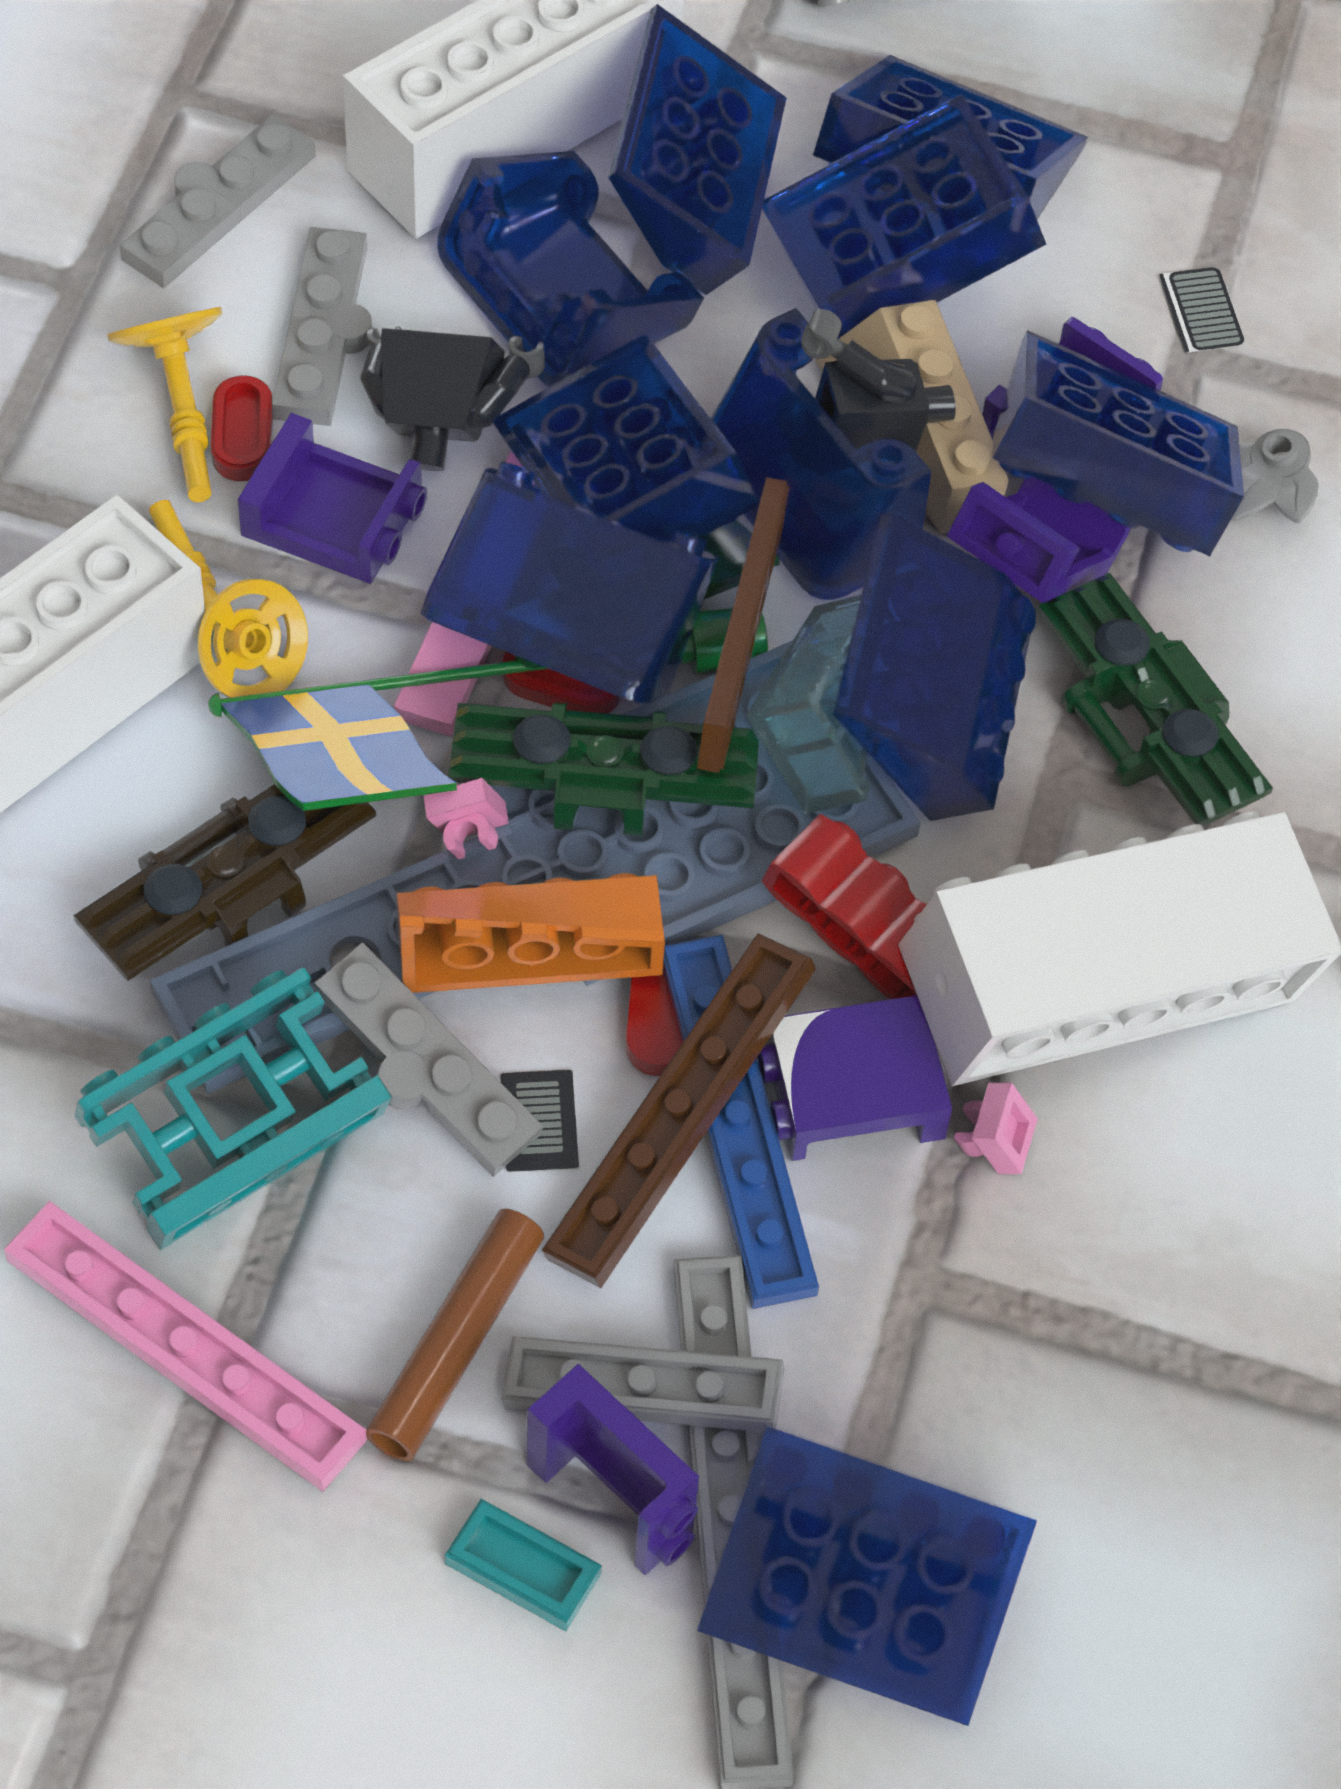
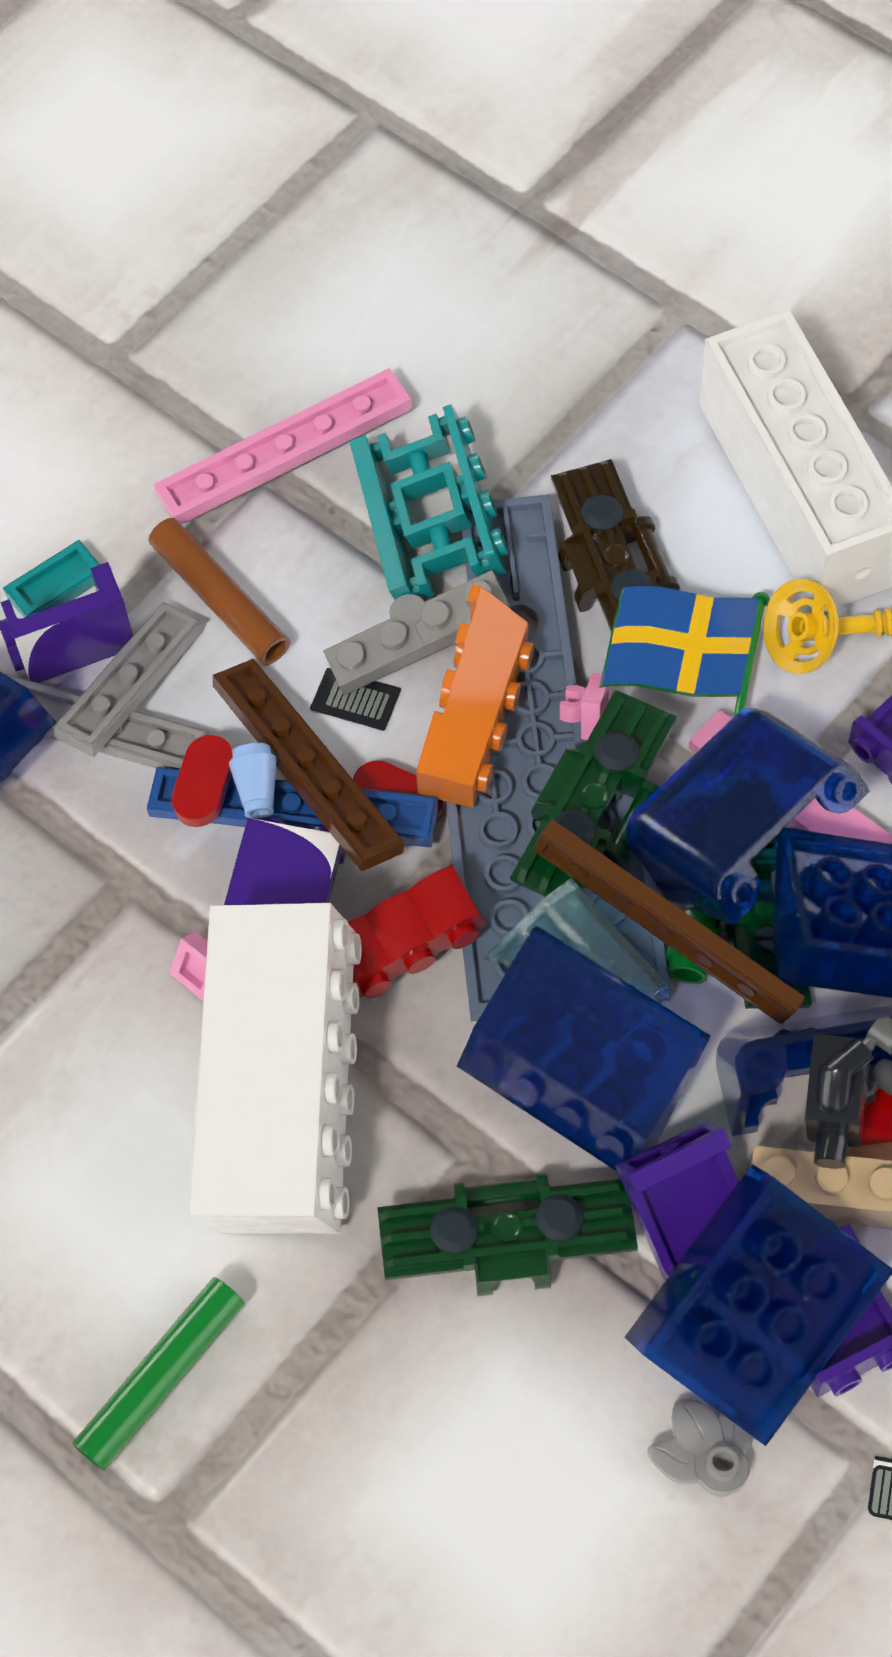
camera: 120 degrees right, 5 degrees up
(736, 1147) = (254, 777): none -> light blue cone
(759, 1218) = (202, 781): none -> red tile

